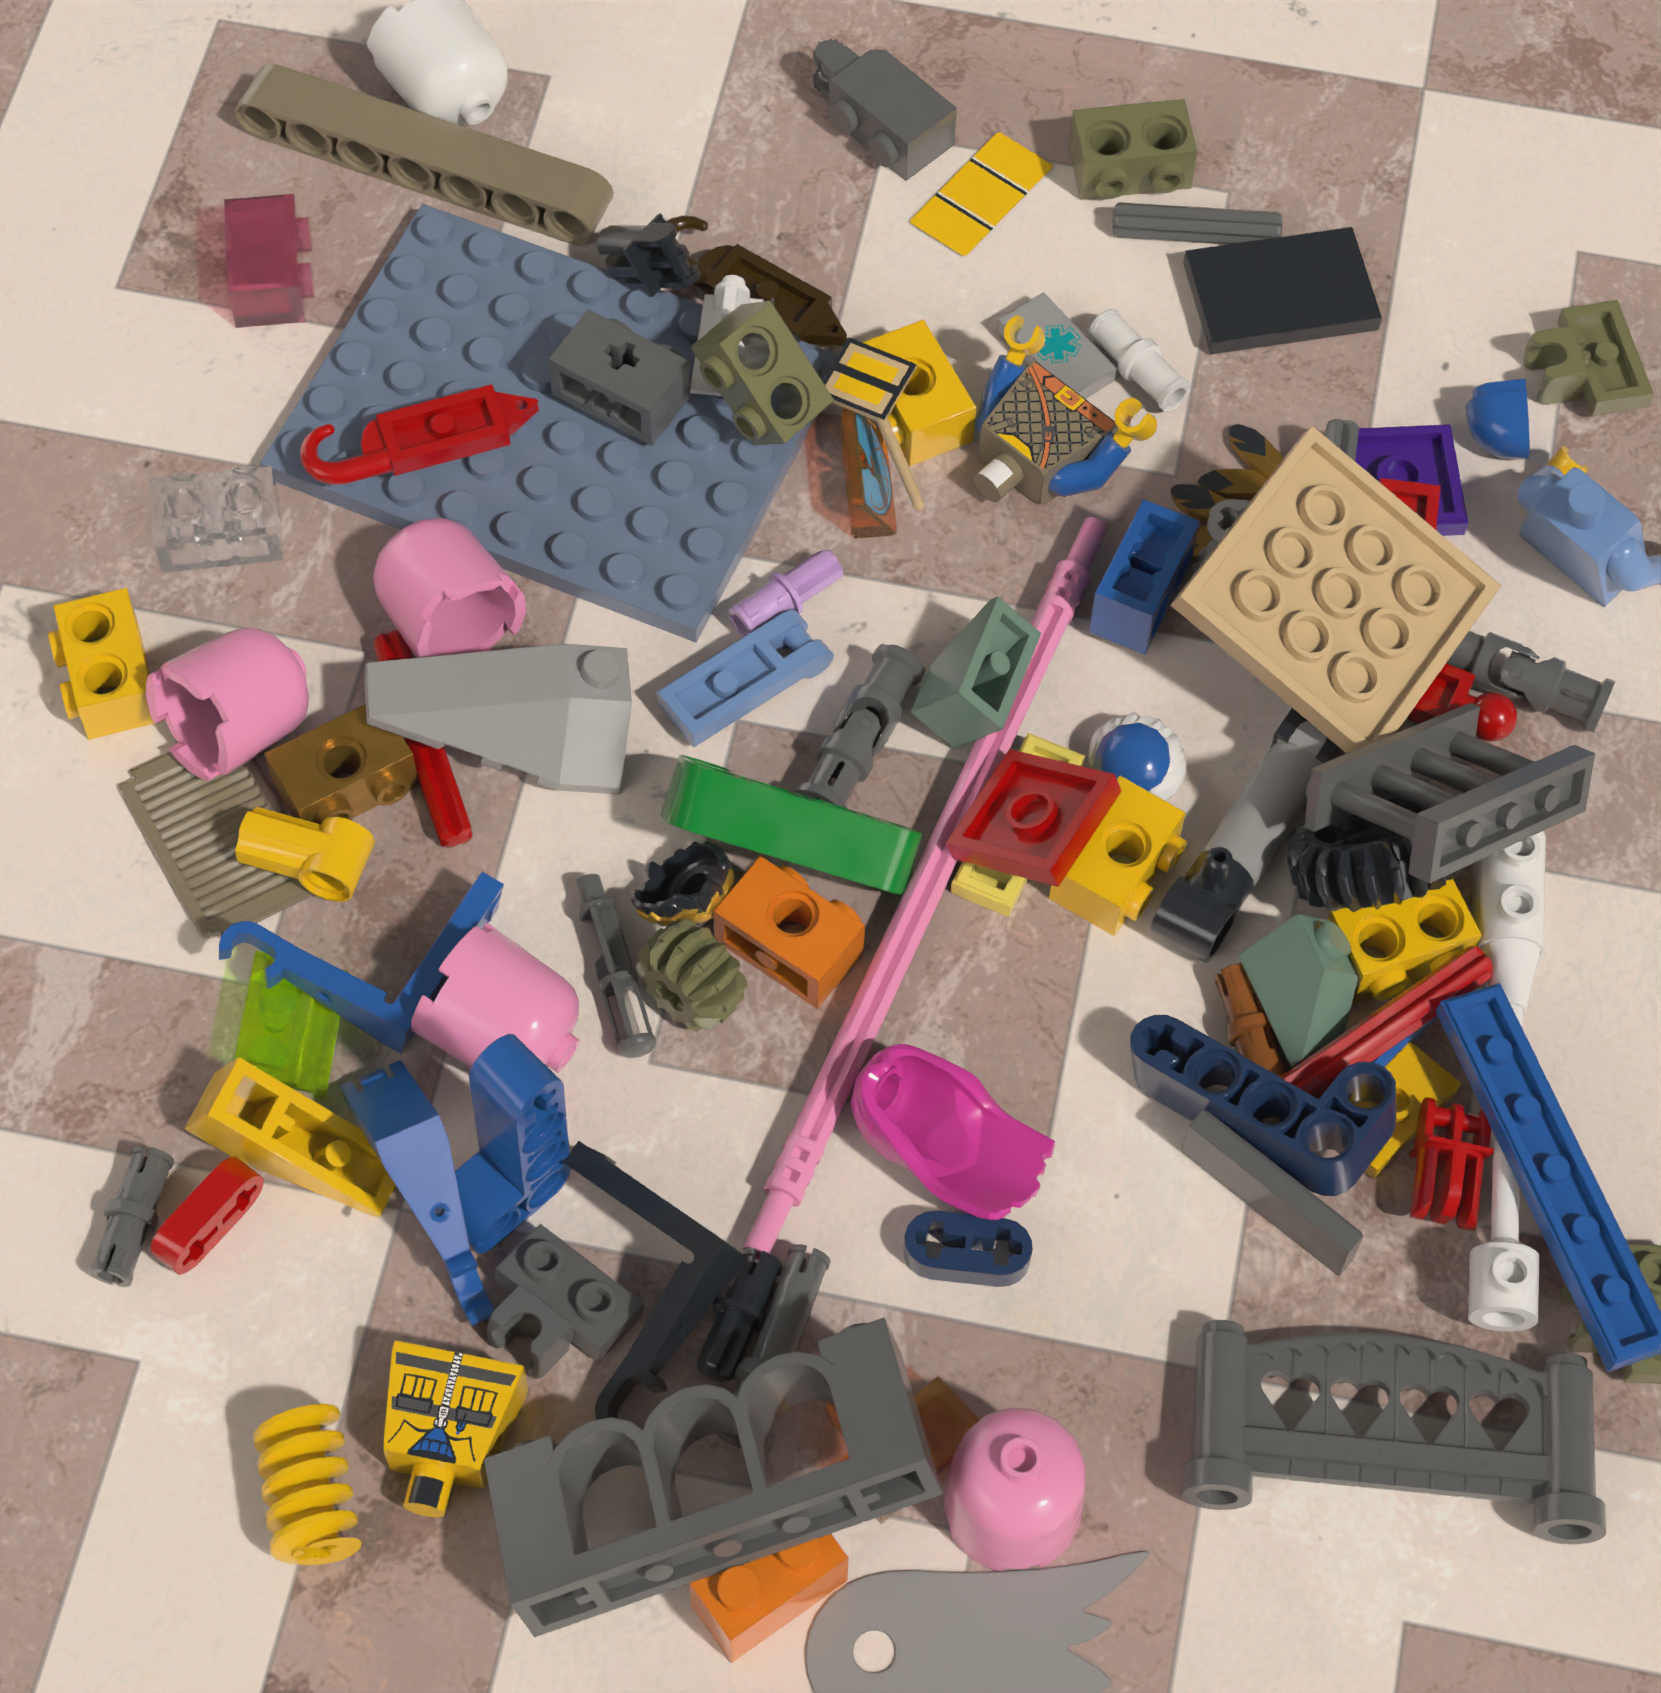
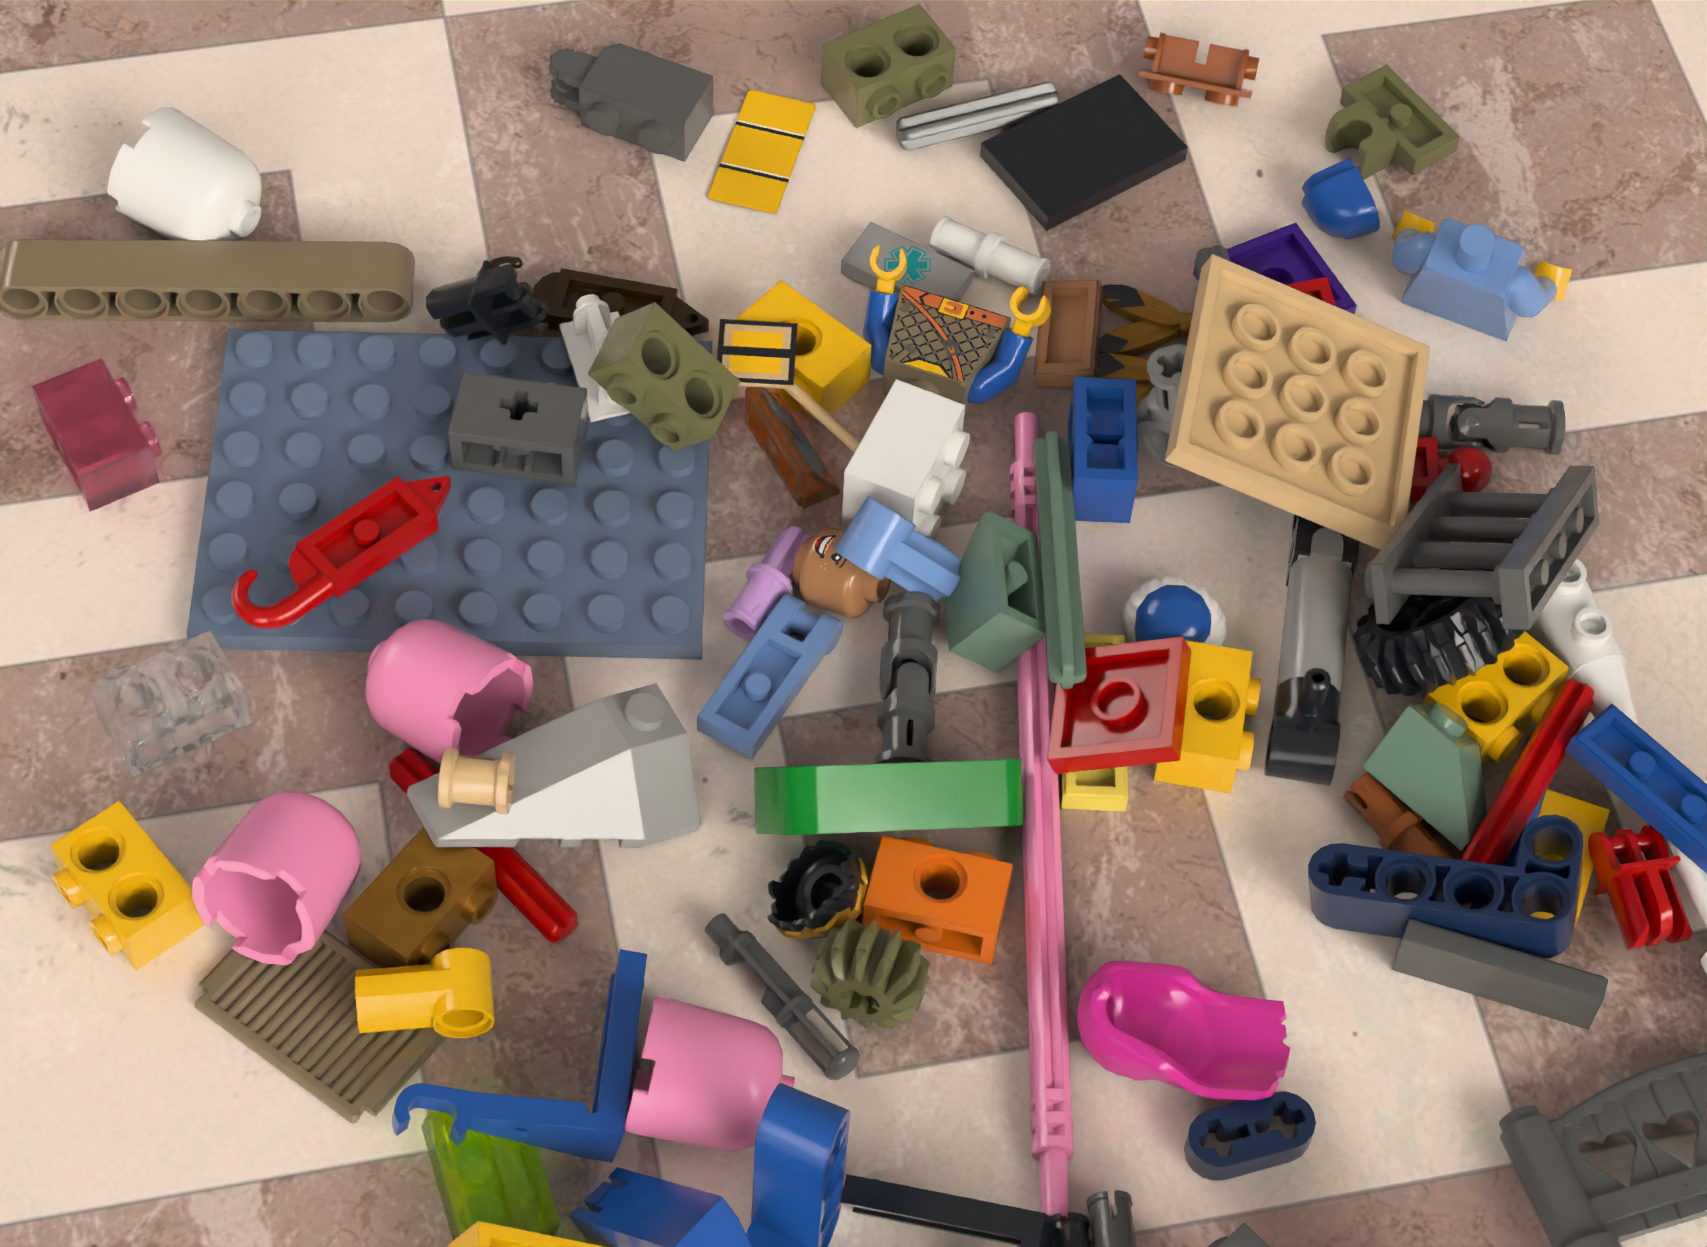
camera: 25 degrees left, 5 degrees down
(418, 677) = (476, 780): none -> tan bush
(849, 605) = (832, 580): none -> medium nougat head
(889, 594) = (890, 547): none -> medium blue piece
(944, 536) = (909, 458): none -> white brick
(1046, 668) = (1059, 561): none -> sand green axle
(1178, 457) = (1071, 335): none -> medium nougat tile
(1447, 260) = (1176, 67): none -> dark orange hinge

